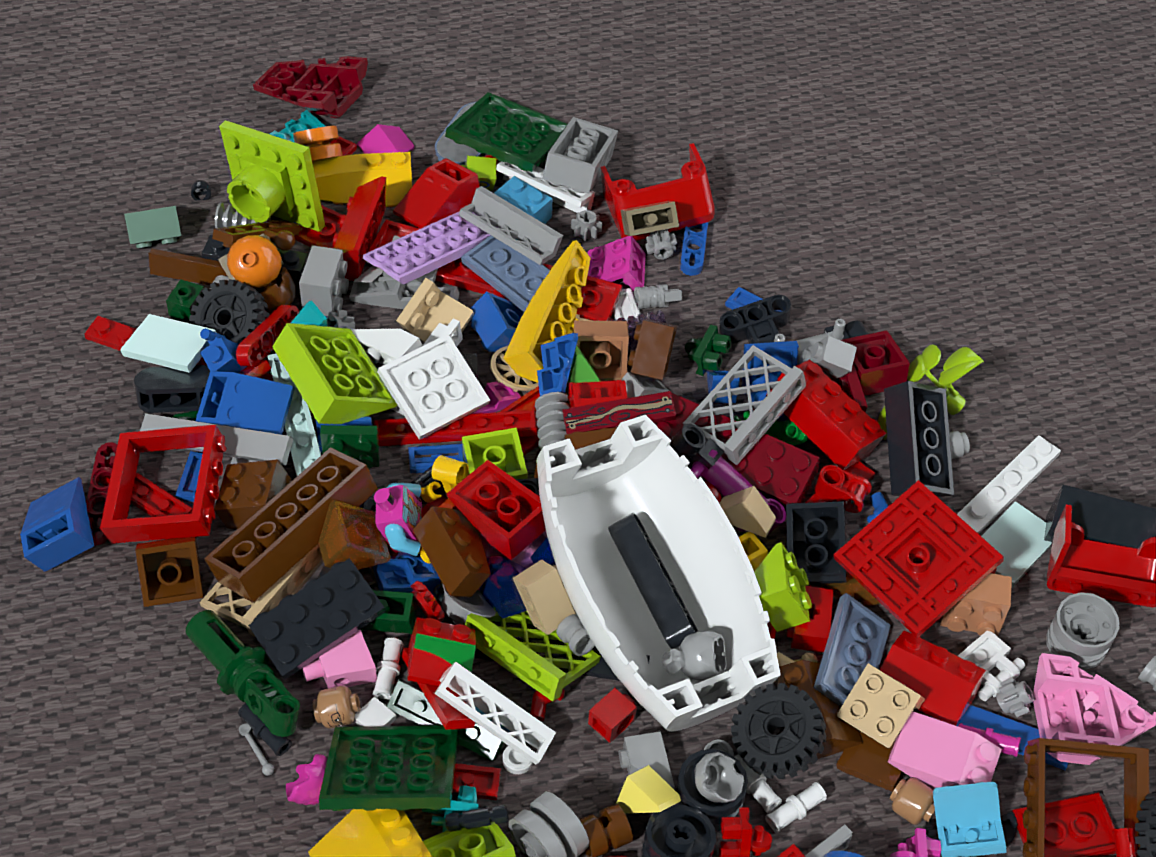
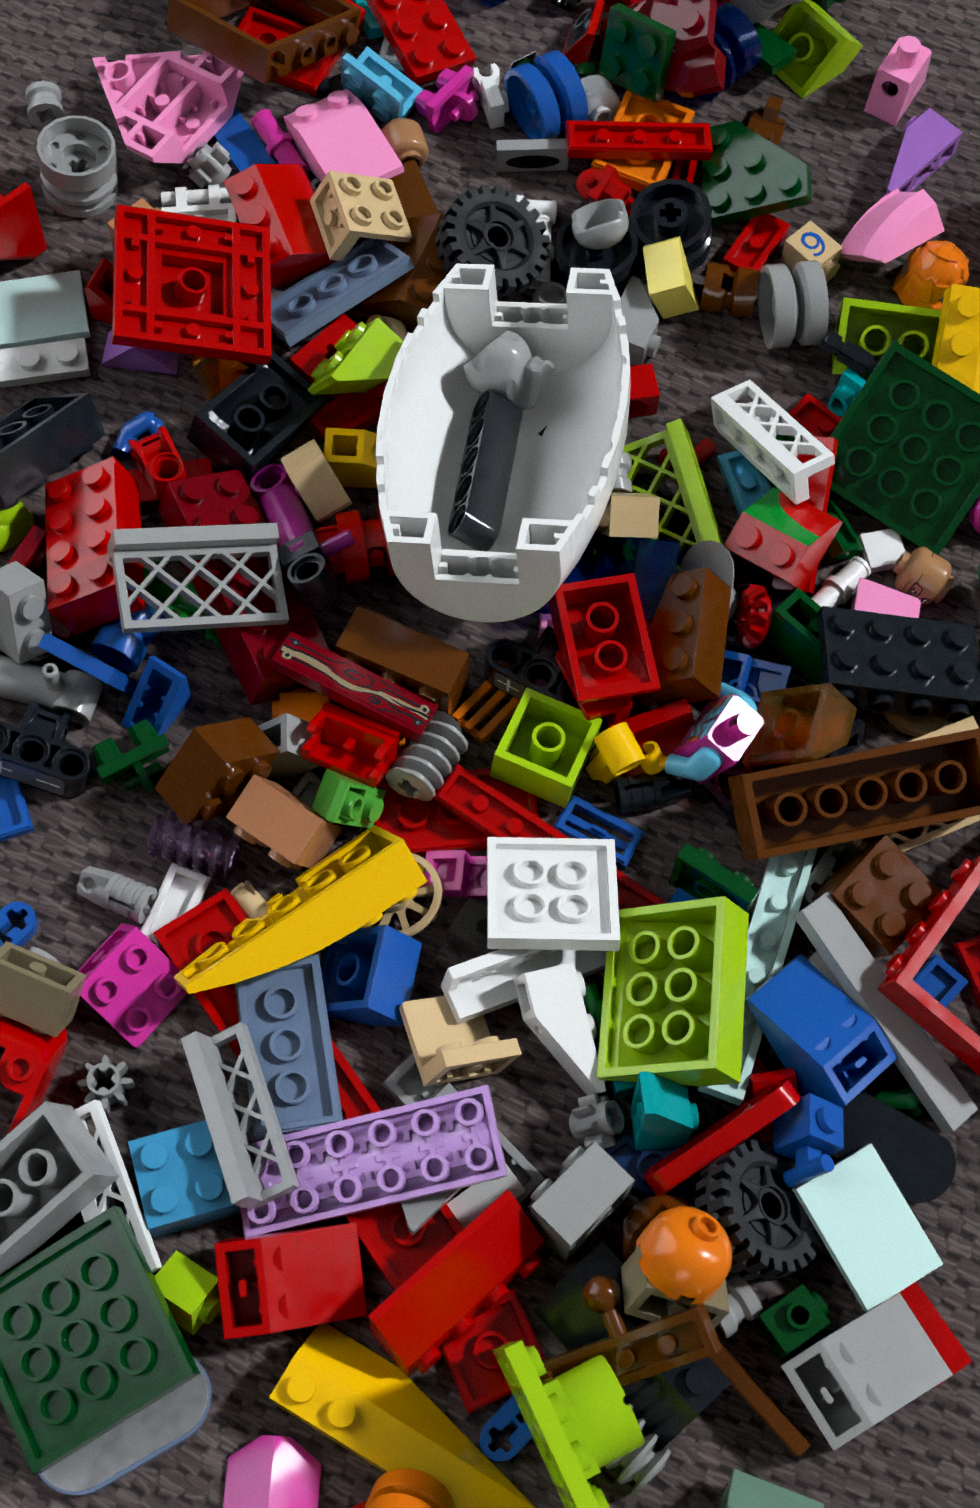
camera: 145 degrees left, 15 degrees up
(137, 290) = (866, 1371): none -> light grey slope
(557, 362) = (372, 806): blue slope -> none

